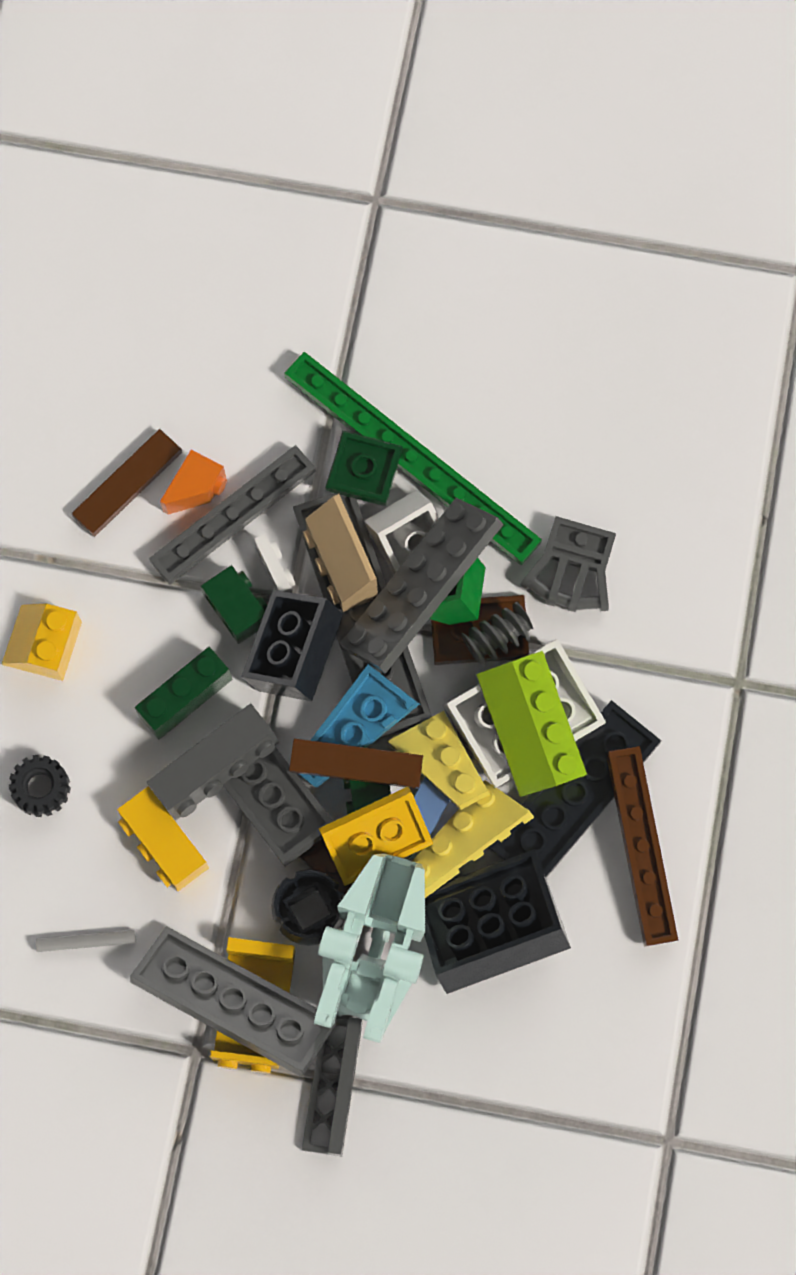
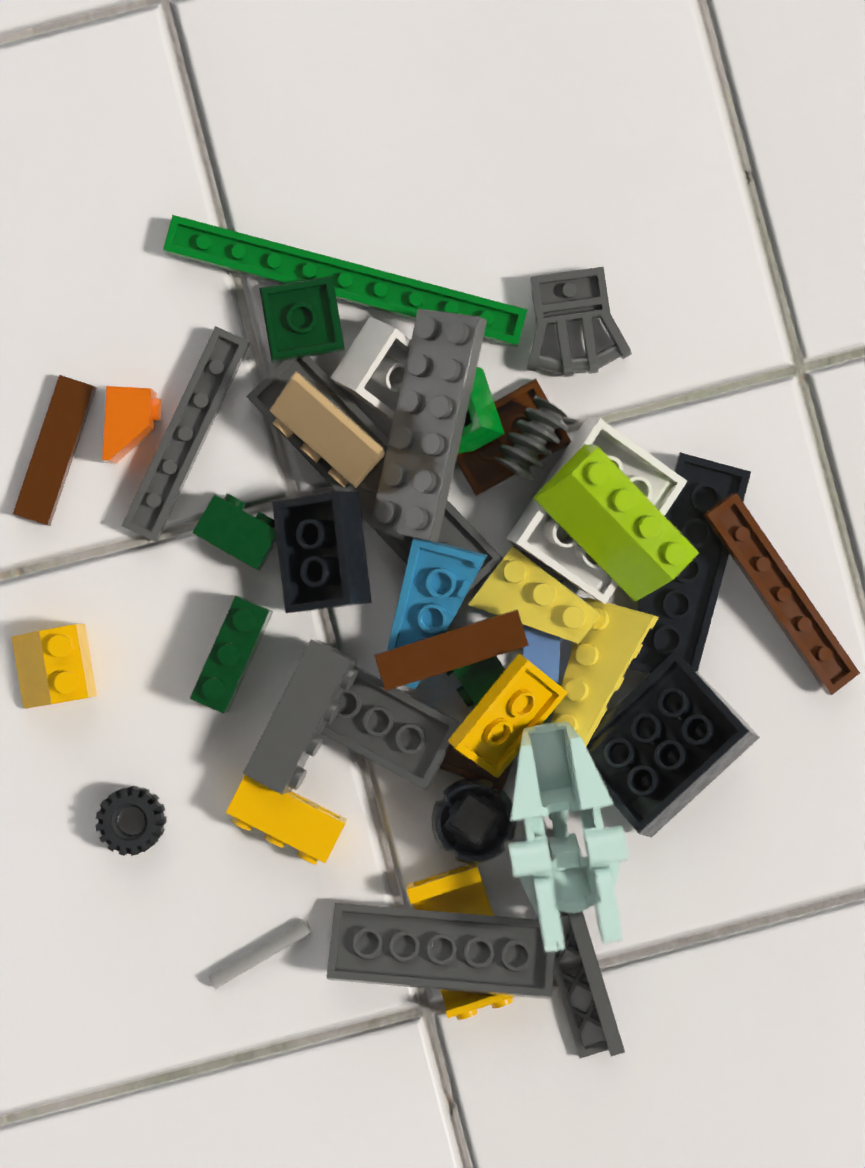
camera: 30 degrees left, 15 degrees up
(270, 557) = (248, 461): white plate -> none

